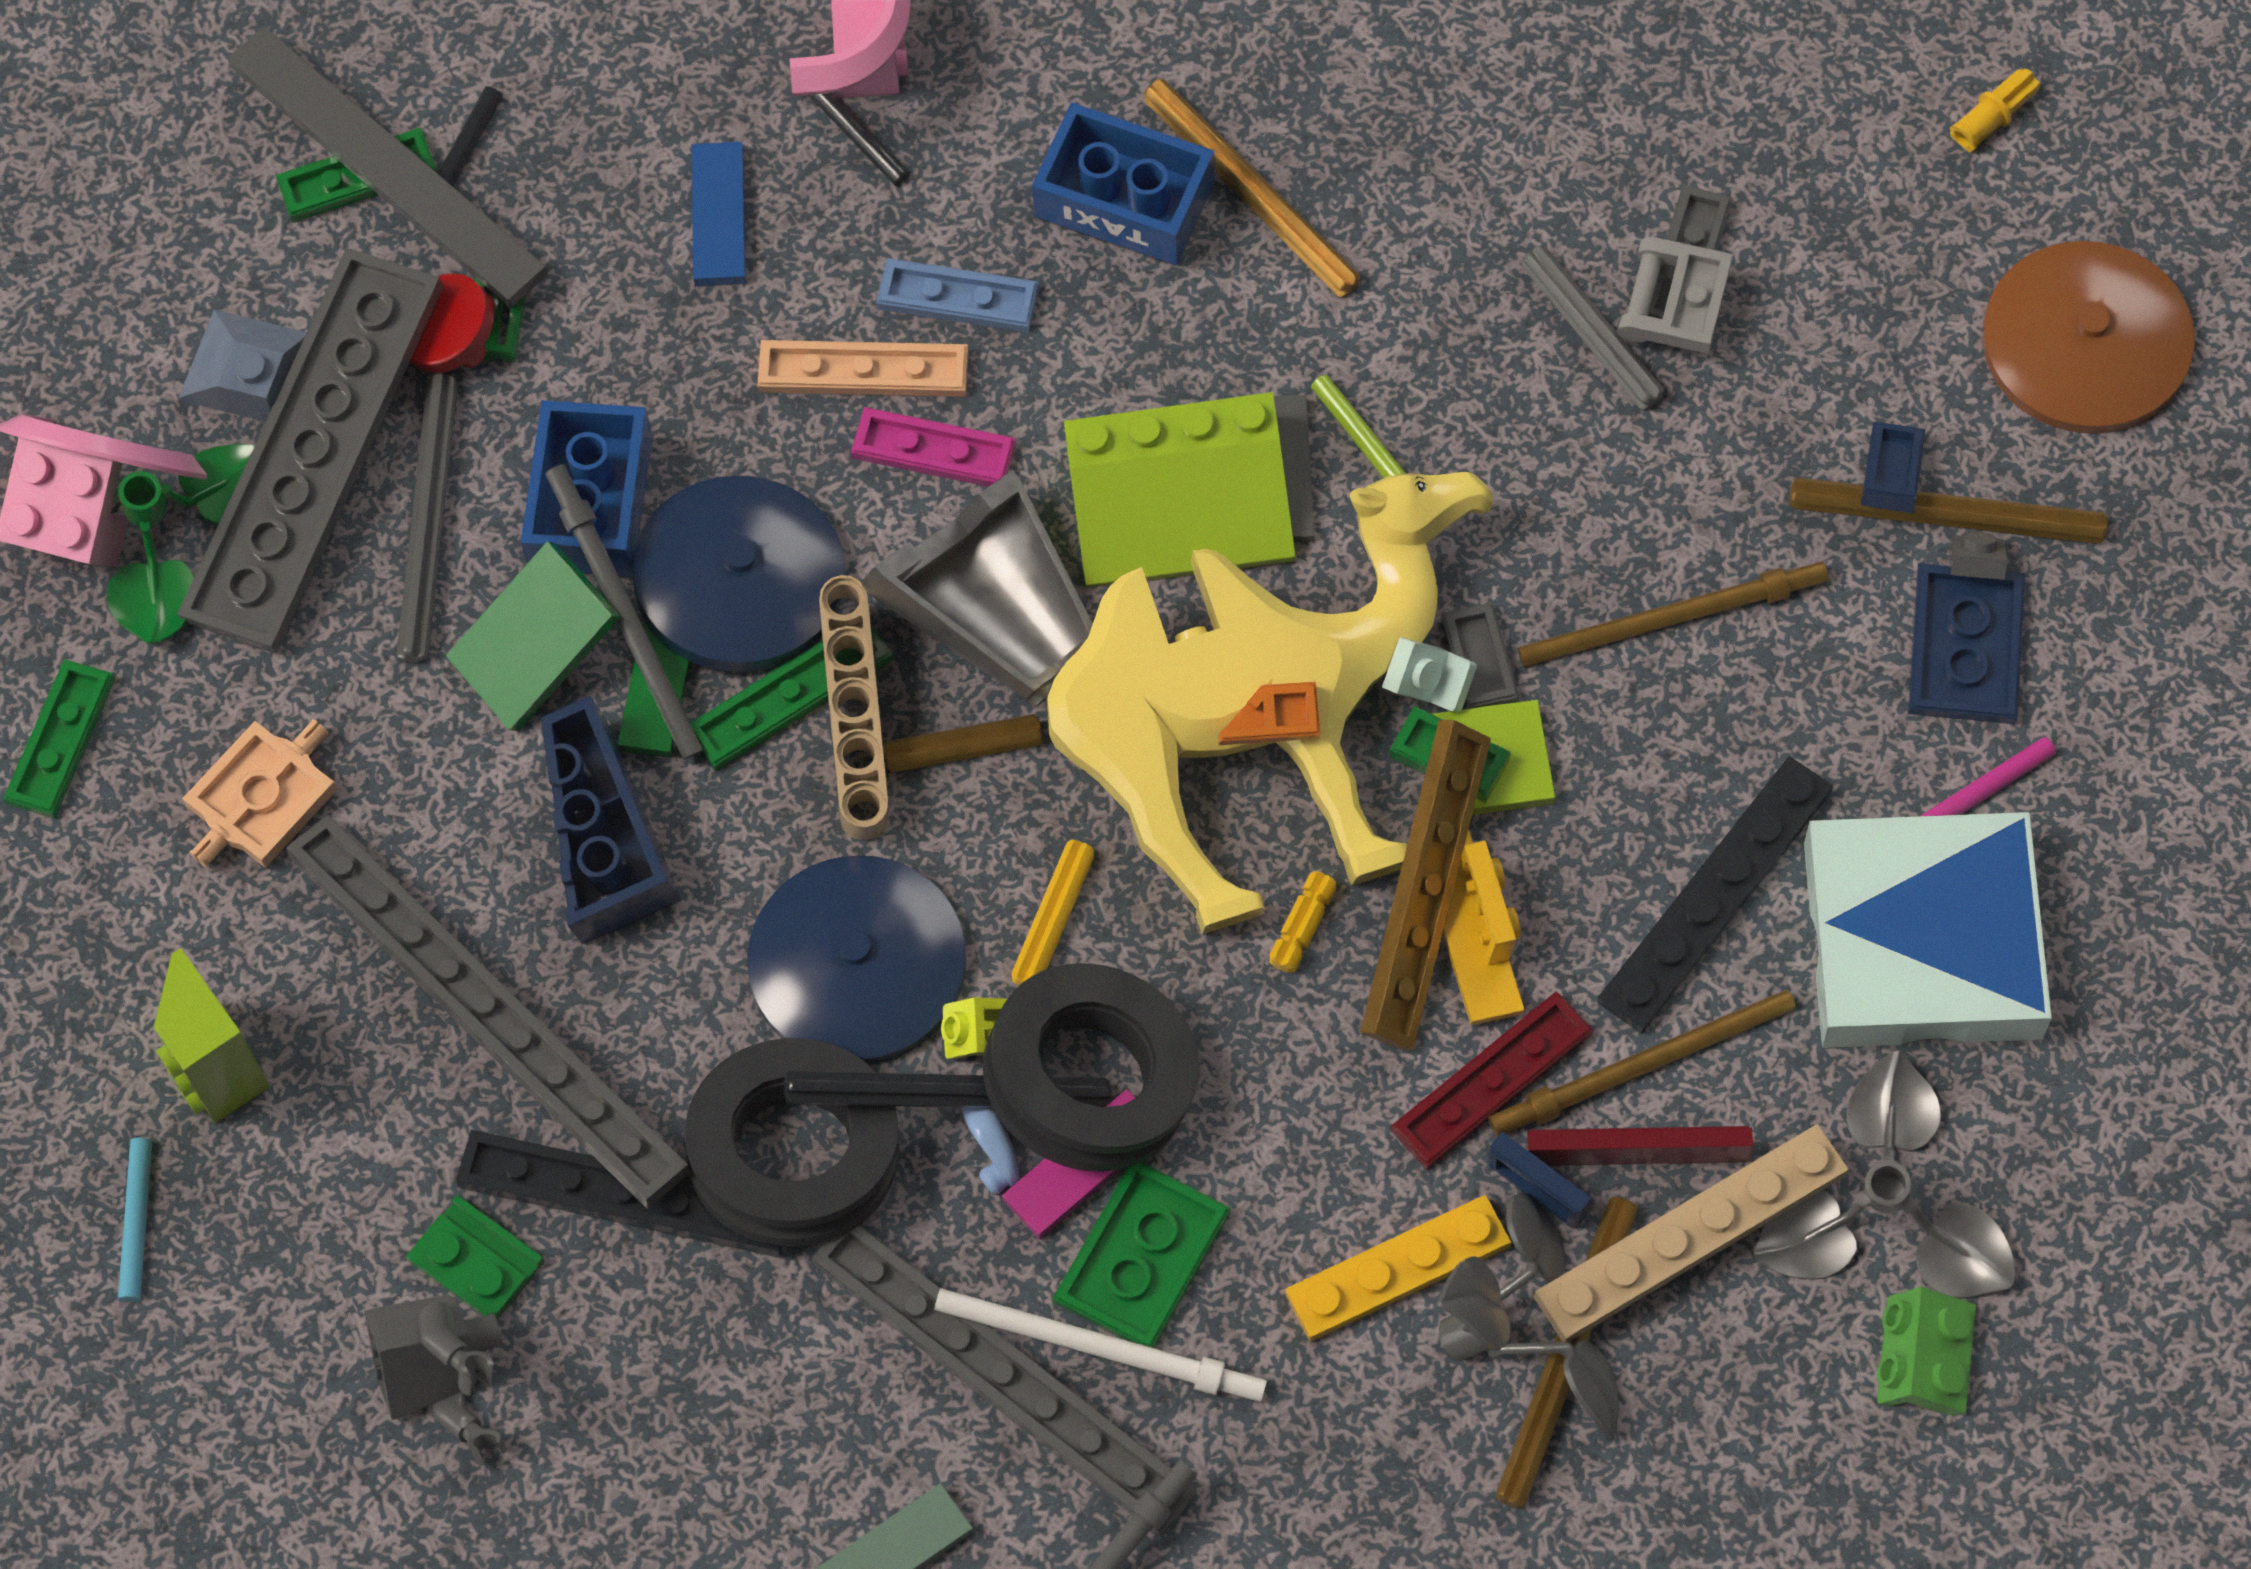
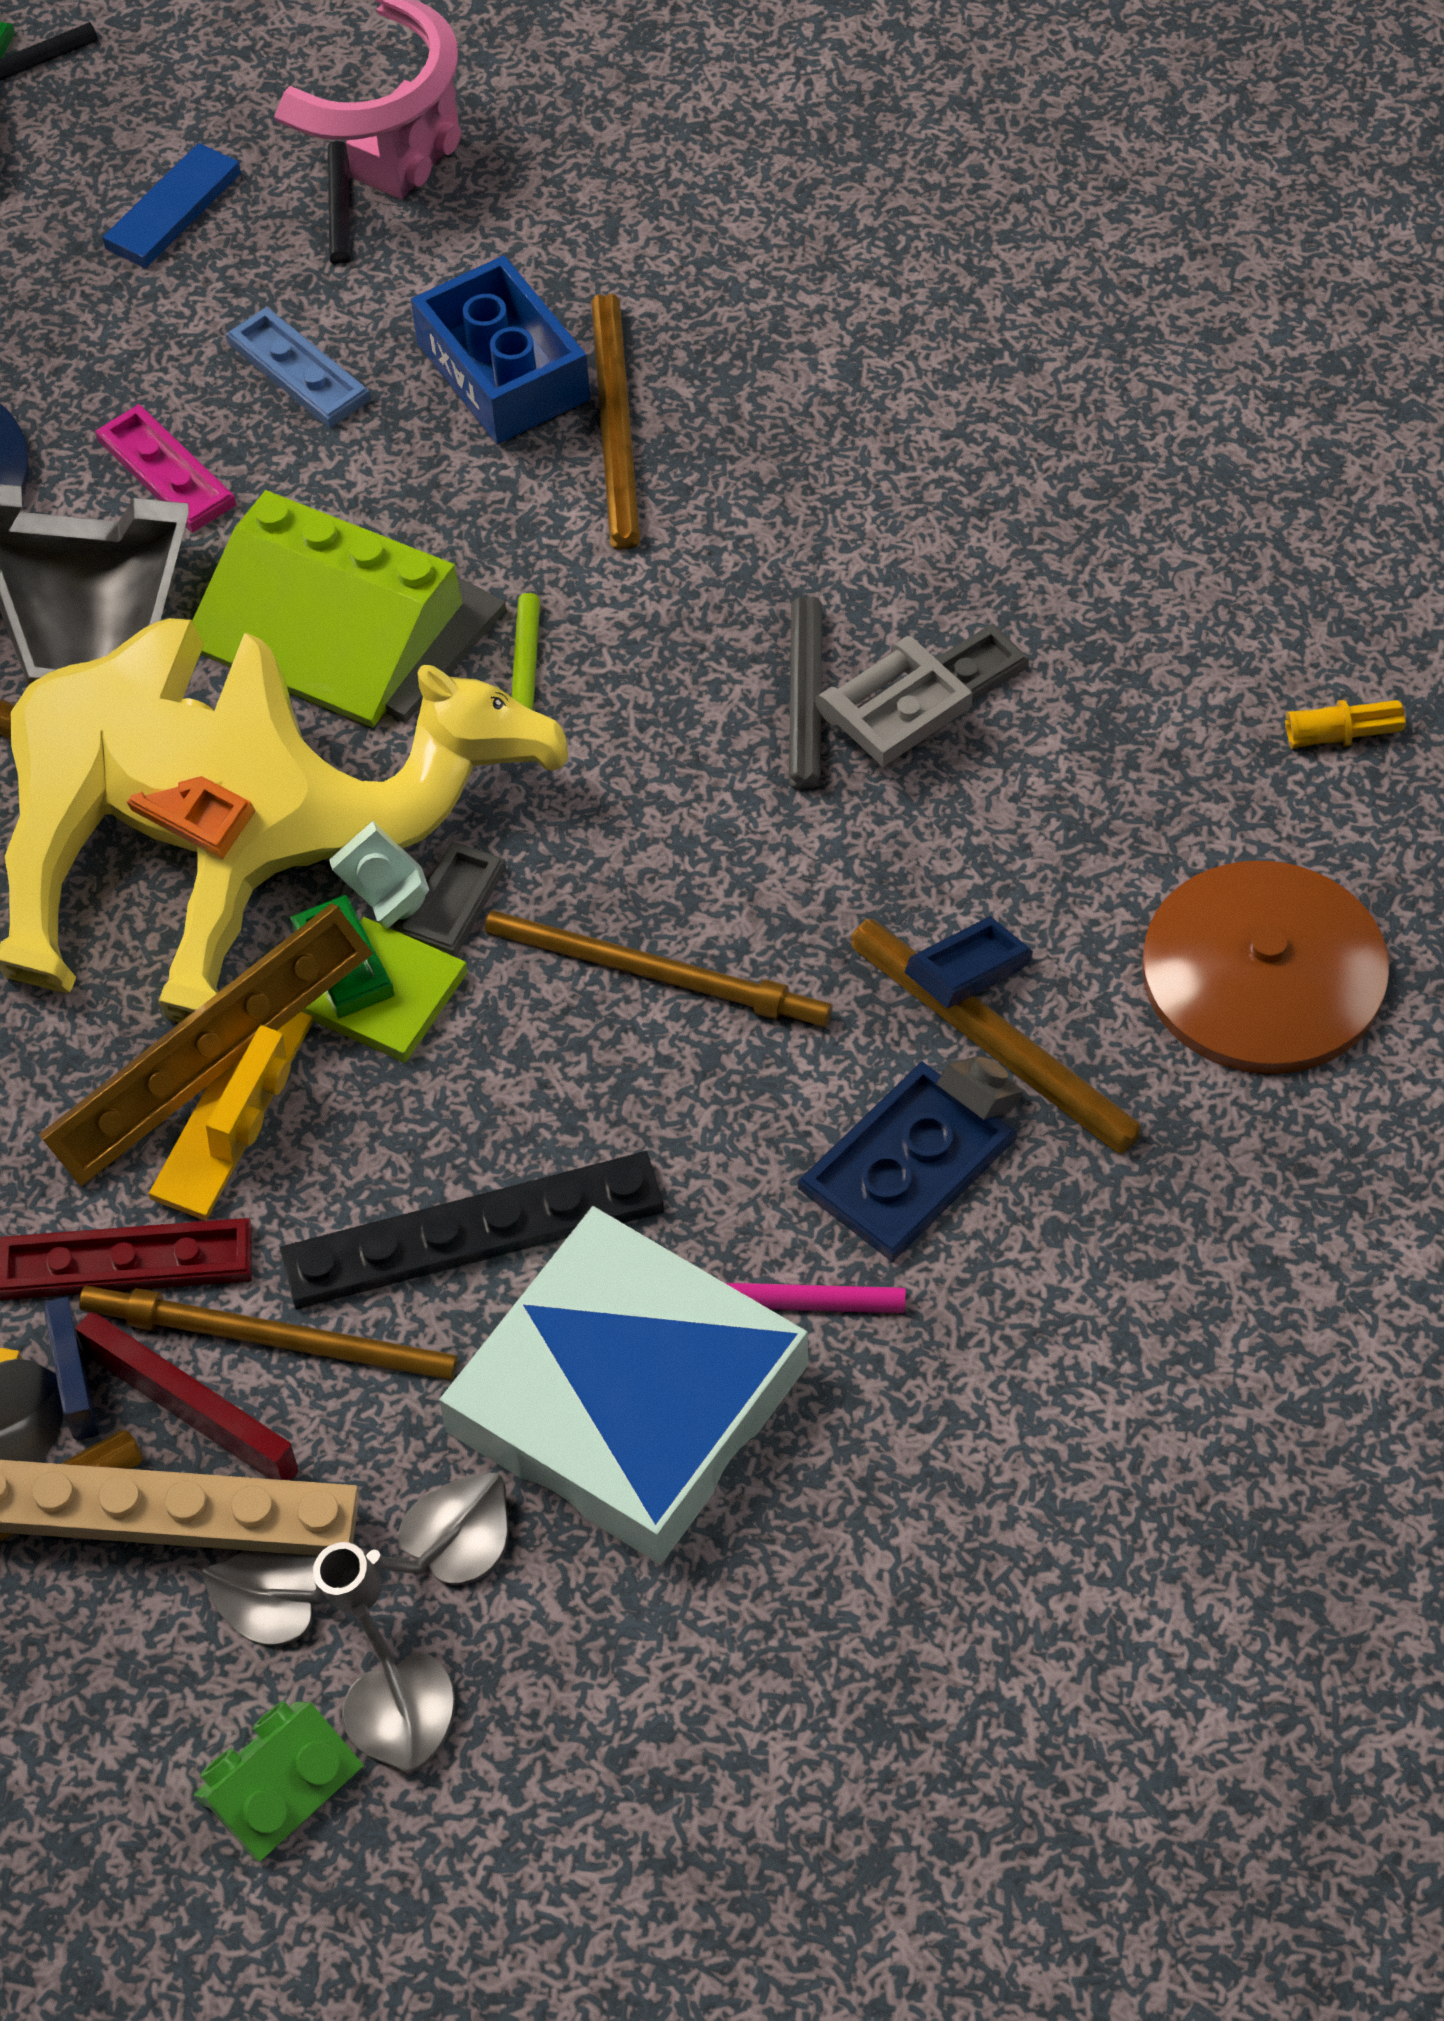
camera: 35 degrees right, 10 degrees down
(863, 368) = (171, 378): light nougat tile -> none
(1302, 922) = (92, 1019): yellow axle -> none

